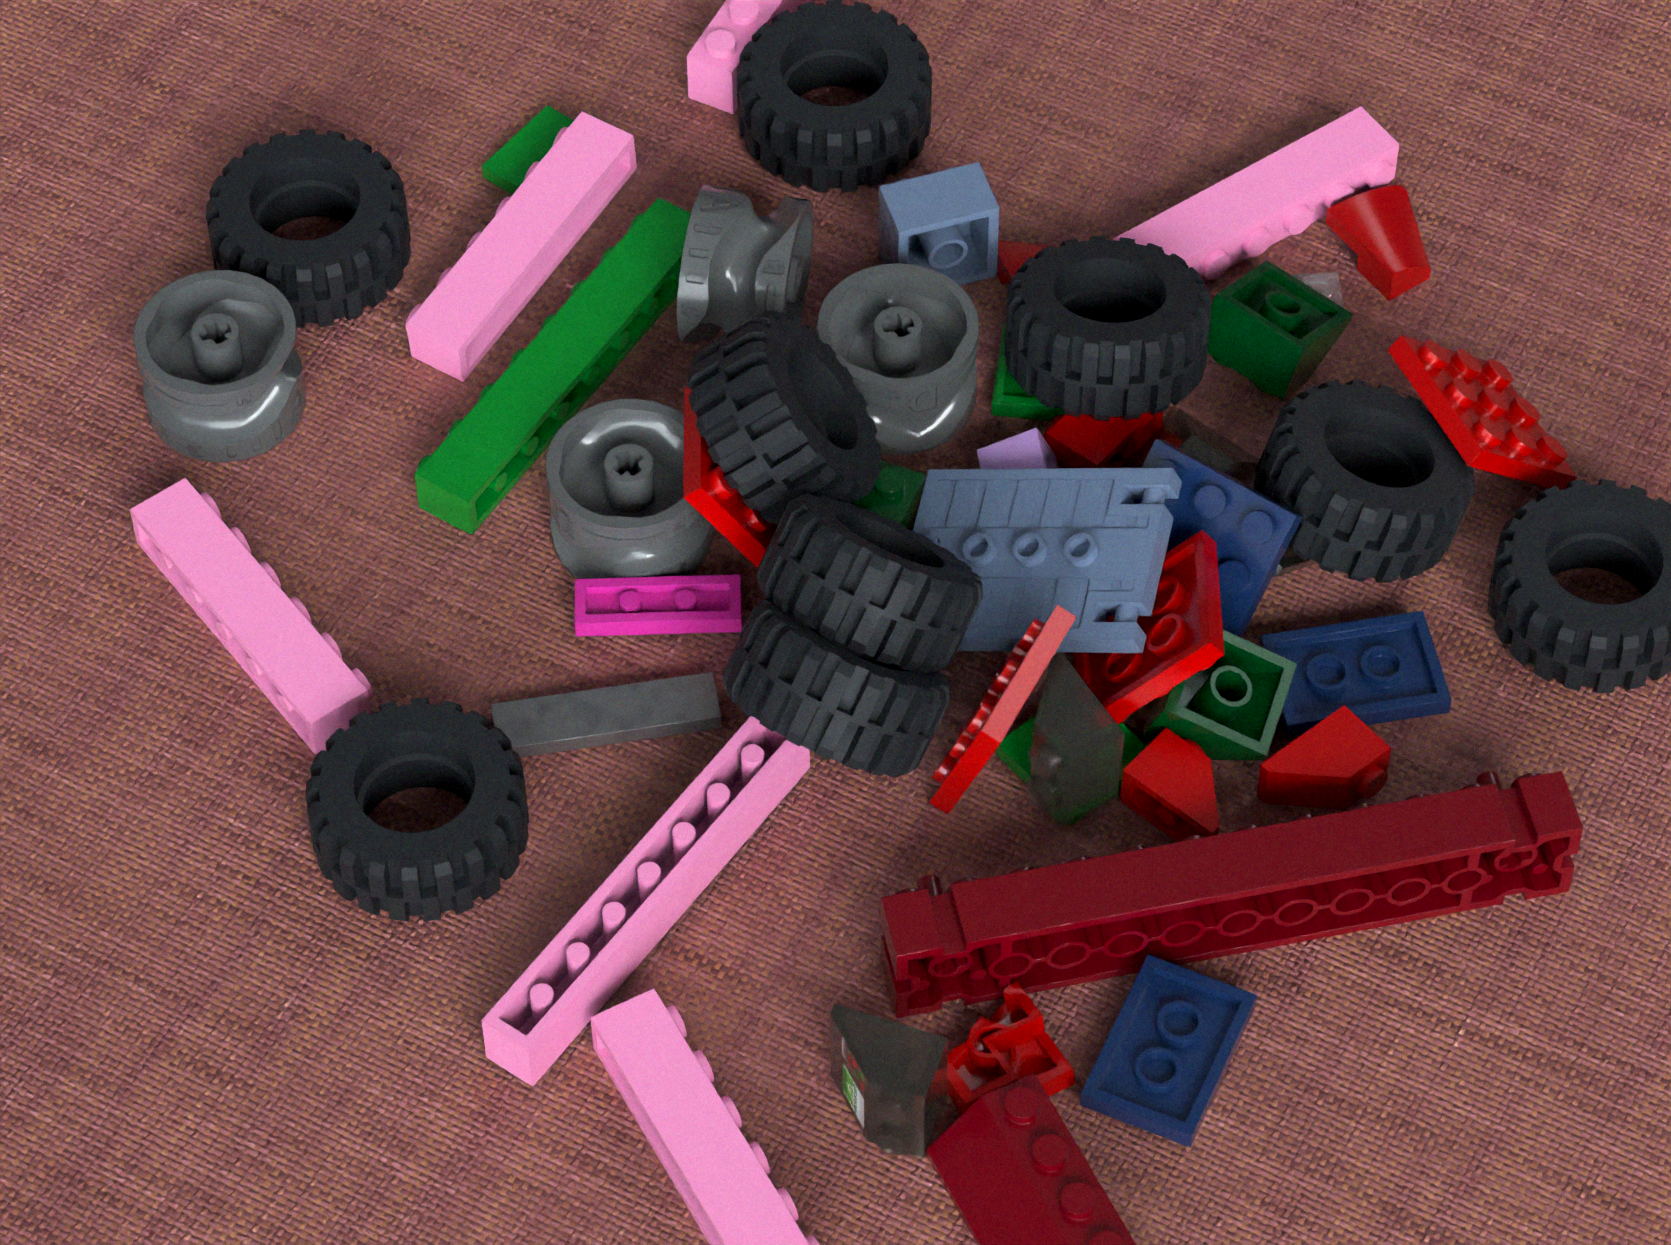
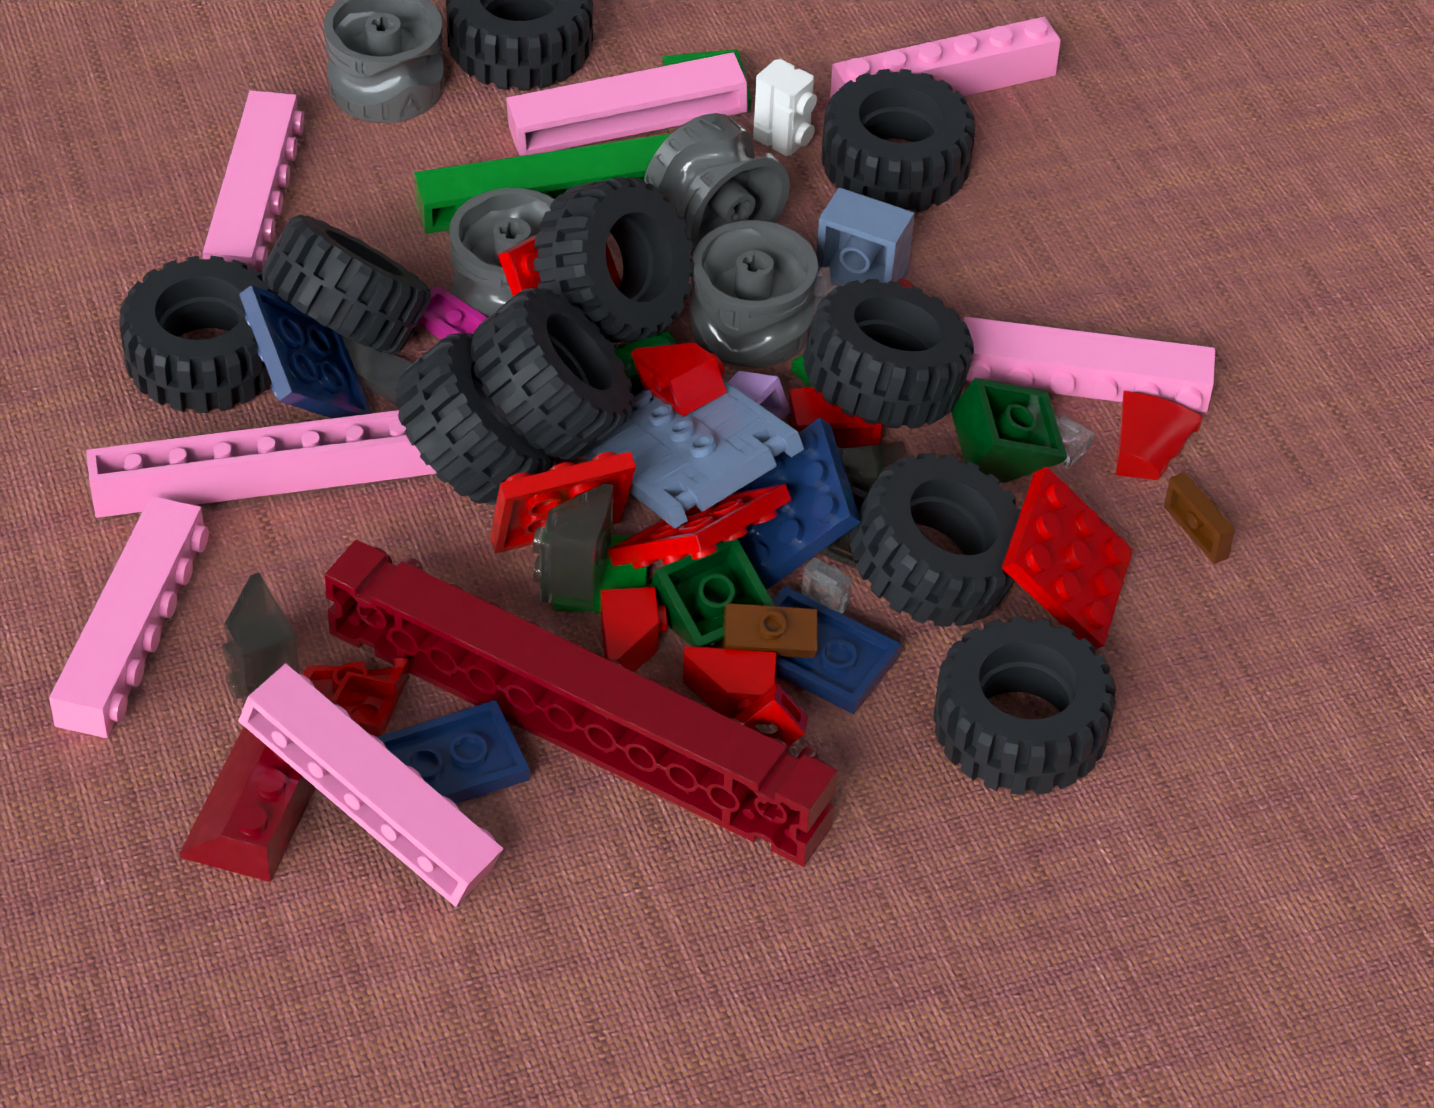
camera: 40 degrees right, 5 degrees down
(533, 644) = (346, 284): none -> black tyre
(578, 753) = (303, 357): none -> dark blue plate
(691, 137) = (784, 107): none -> white brick
(962, 495) = (680, 375): none -> red slope
(1168, 1125) = (370, 784): none -> bright pink brick
(1293, 606) = (826, 585): none -> clear plate
(1315, 687) = (771, 629): none -> reddish brown plate
(1415, 768) = (778, 709): none -> red brick
(1519, 288) = (1199, 517): none -> reddish brown plate

